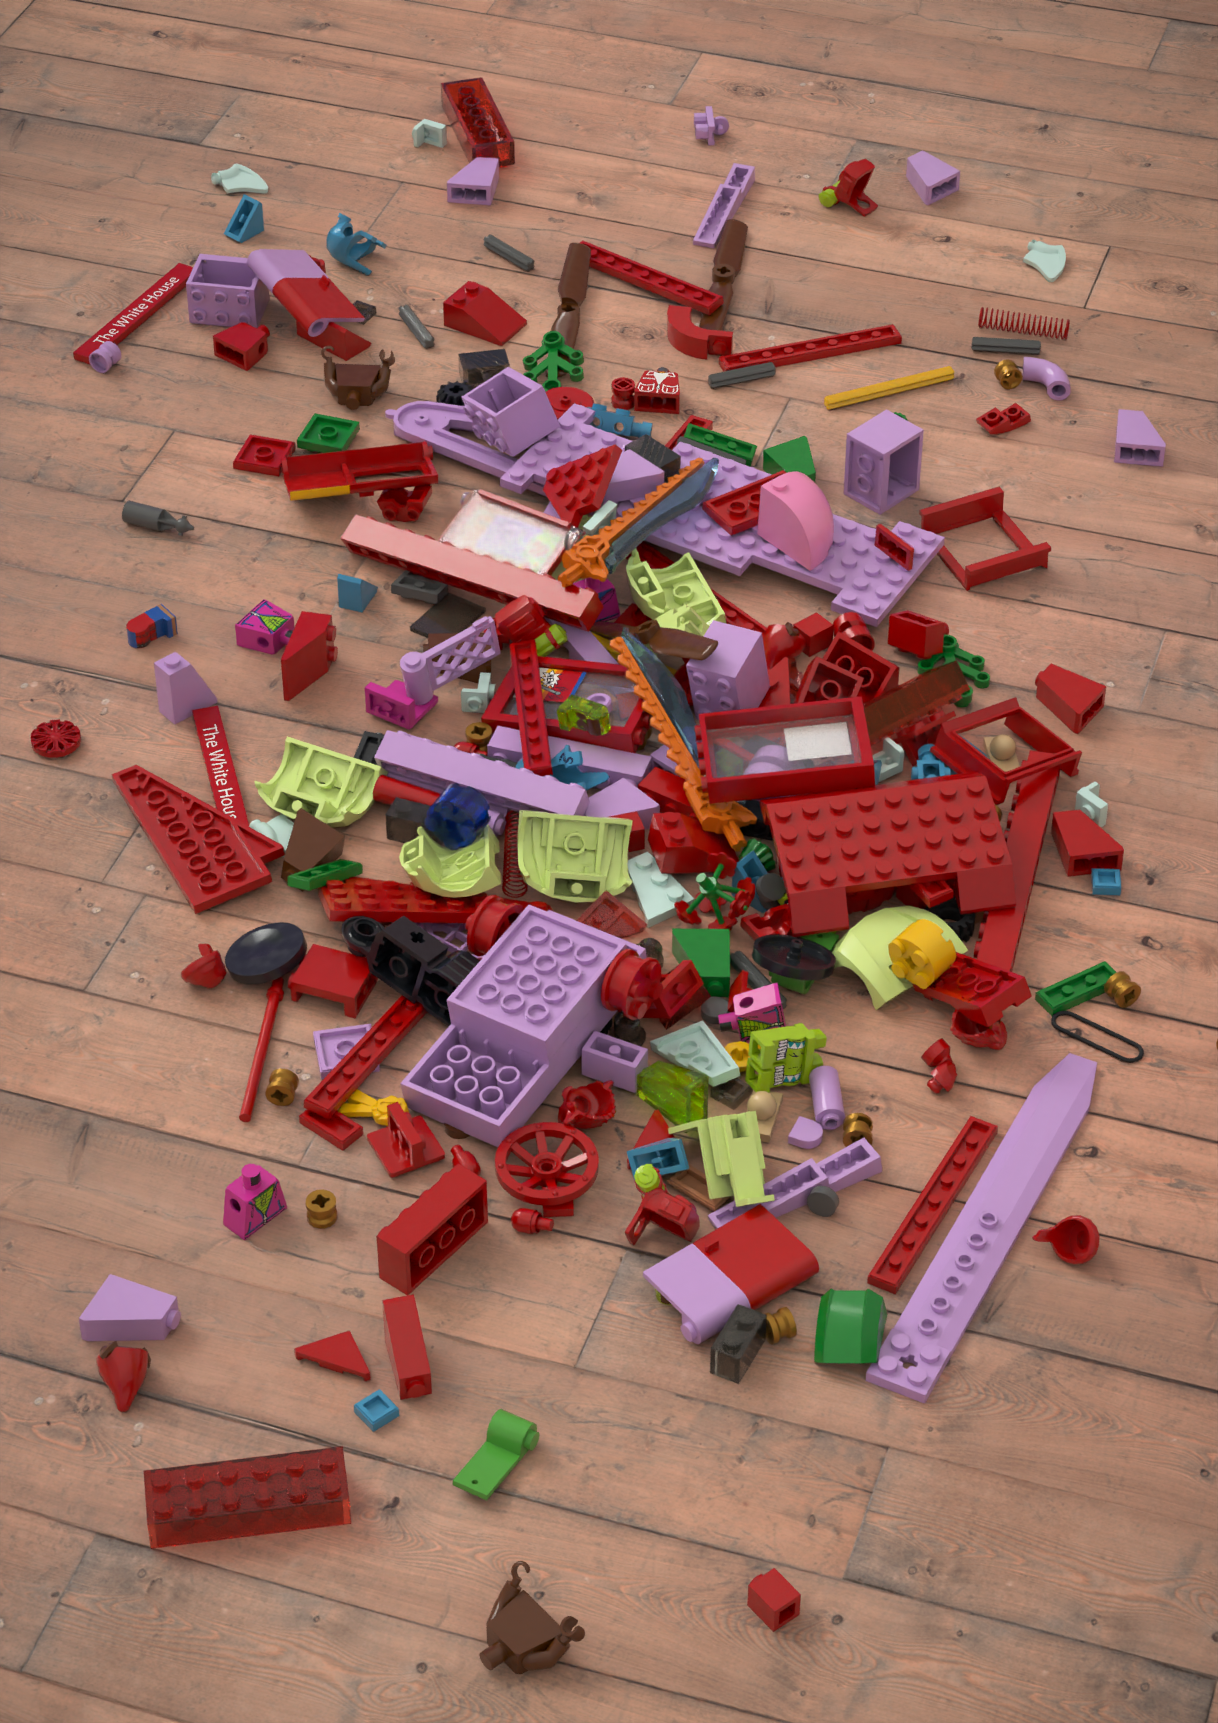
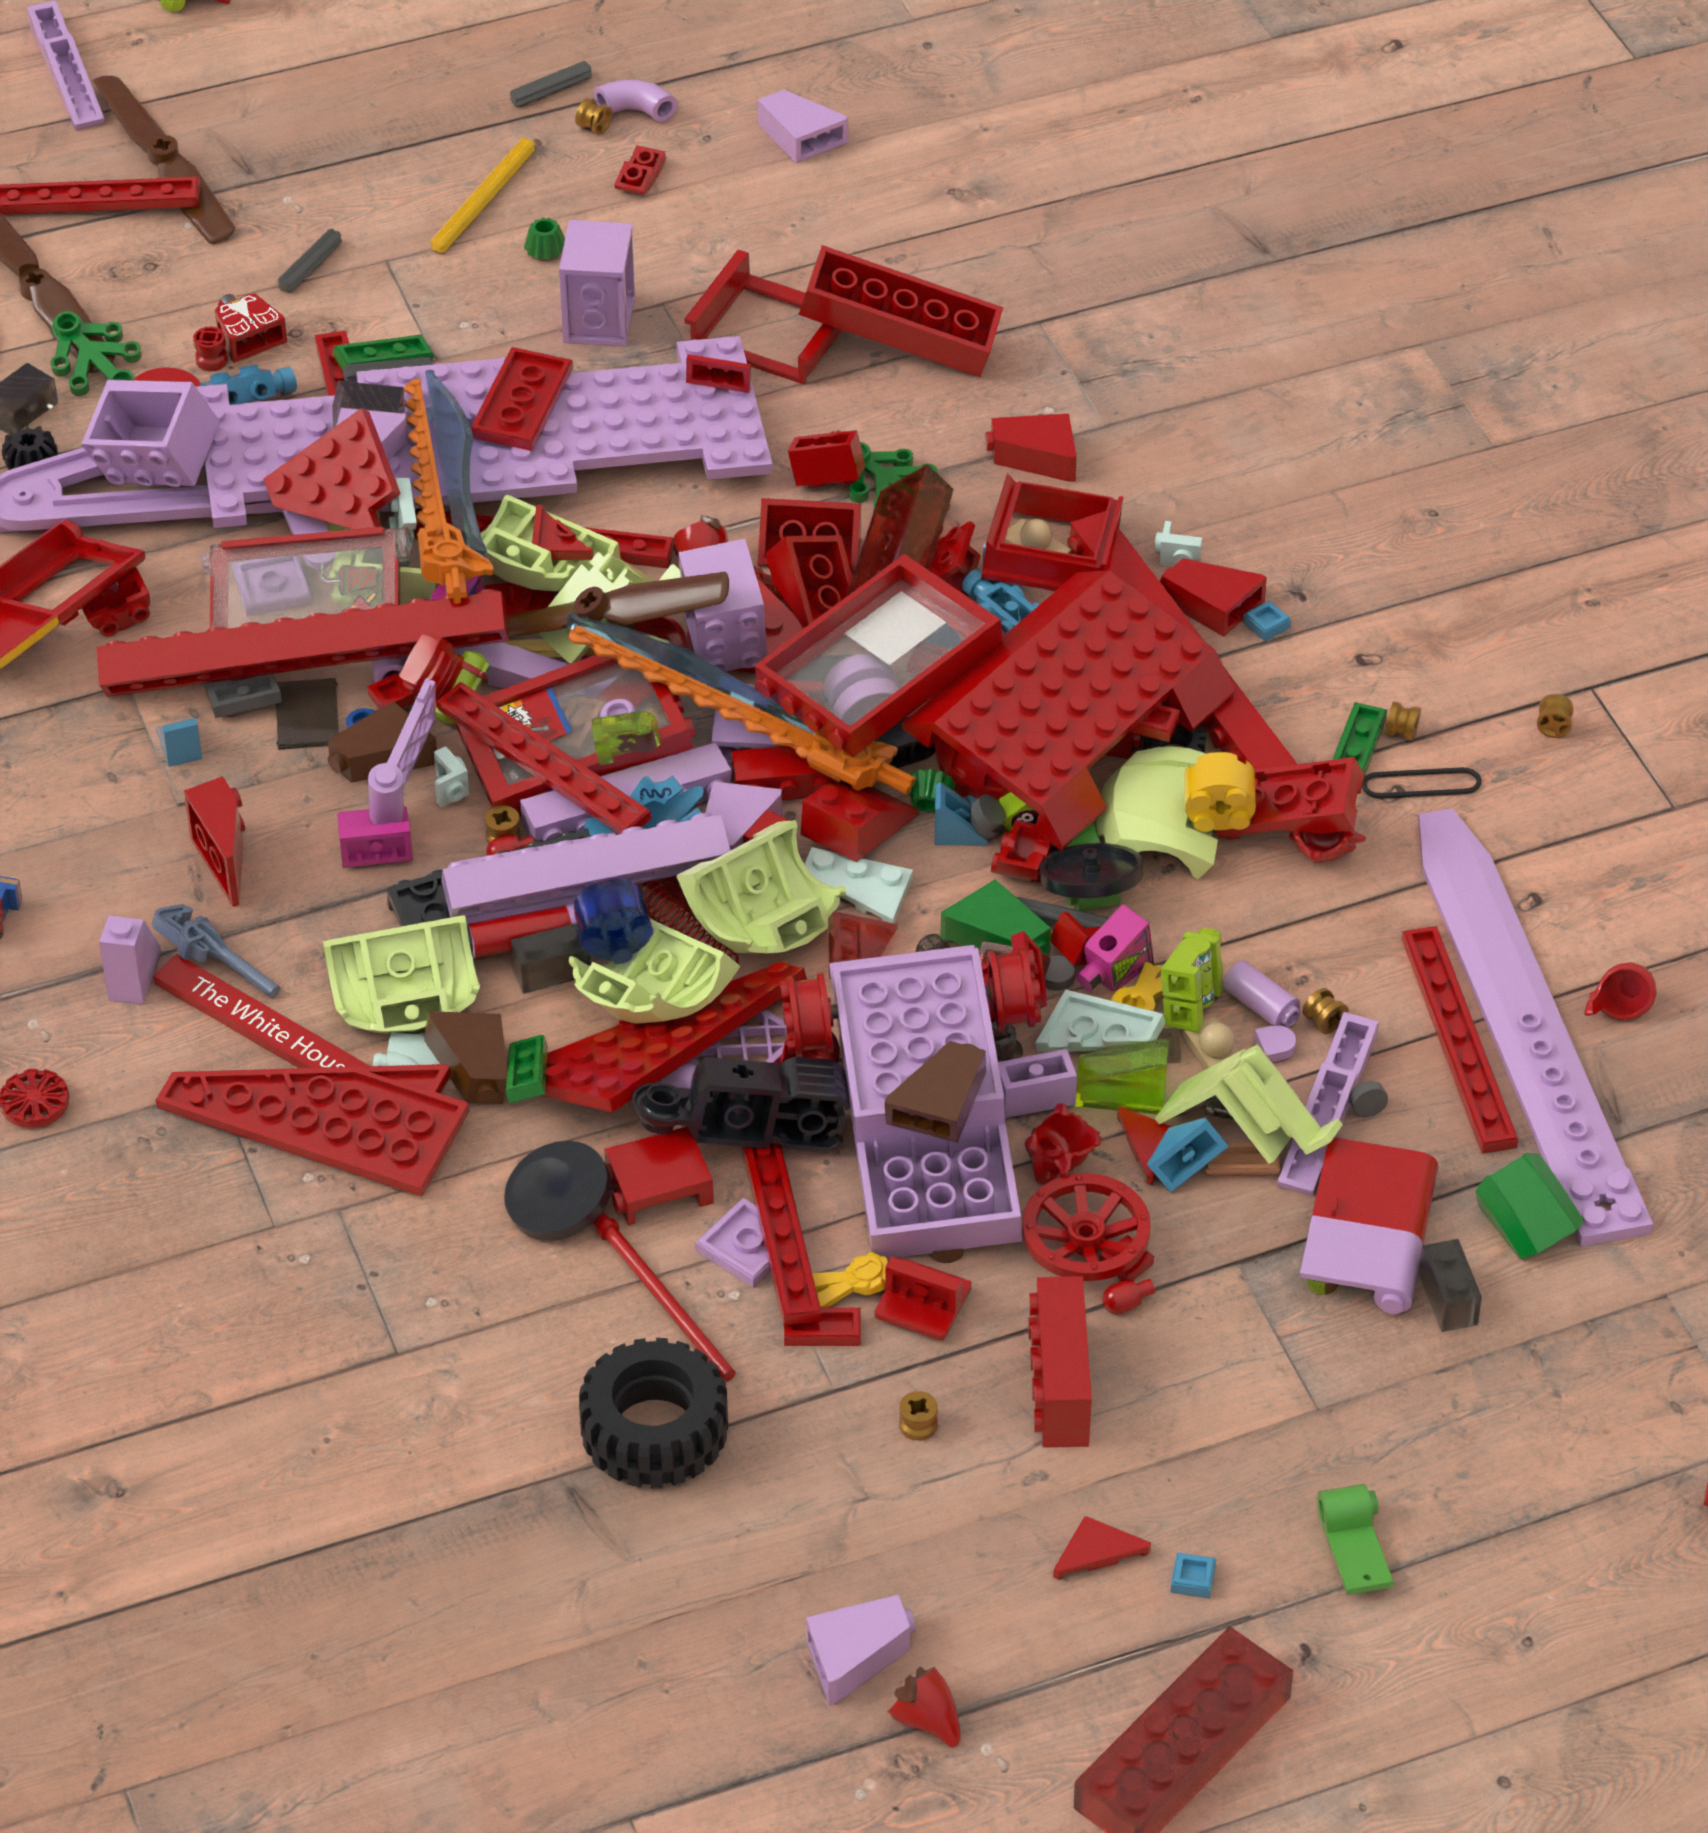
camera: 40 degrees left, 5 degrees up
(167, 1133) = (653, 1451): none -> black tyre
(207, 970) = (512, 1244): red hat -> none
(237, 700) = (200, 940): none -> sand blue piece
(252, 1201) = (852, 1440): dark pink torso -> none
(265, 628) = (132, 835): dark pink torso -> none
(282, 1087) = (736, 1319): pearl gold wheel -> none
(406, 1347) = (1169, 1494): red slope -> none
(465, 1159) = (1001, 1280): red cylinder -> none
(504, 1011) = (939, 1092): none -> reddish brown slope
(524, 1632) = (1568, 1682): reddish brown torso -> none
(661, 1208) = (1246, 1199): red piece -> none
(686, 591) = (558, 538): none -> red tile
(695, 340) = (205, 244): red arch -> none
(712, 895) = (941, 847): red plant -> none
(780, 1325) = (1470, 1238): pearl gold wheel -> none
(790, 457) = (484, 334): green slope -> none
(796, 518) = (601, 397): bright pink brick -> none
(814, 348) = (349, 192): red tile -> none
(815, 633) = (719, 506): red brick -> none
(854, 627) = (753, 486): red wheel -> none
(945, 1073) = (1315, 889): red arm -> none
(1022, 326) = (592, 31): red piece -> none
(1058, 569) = (901, 311): none -> red brick

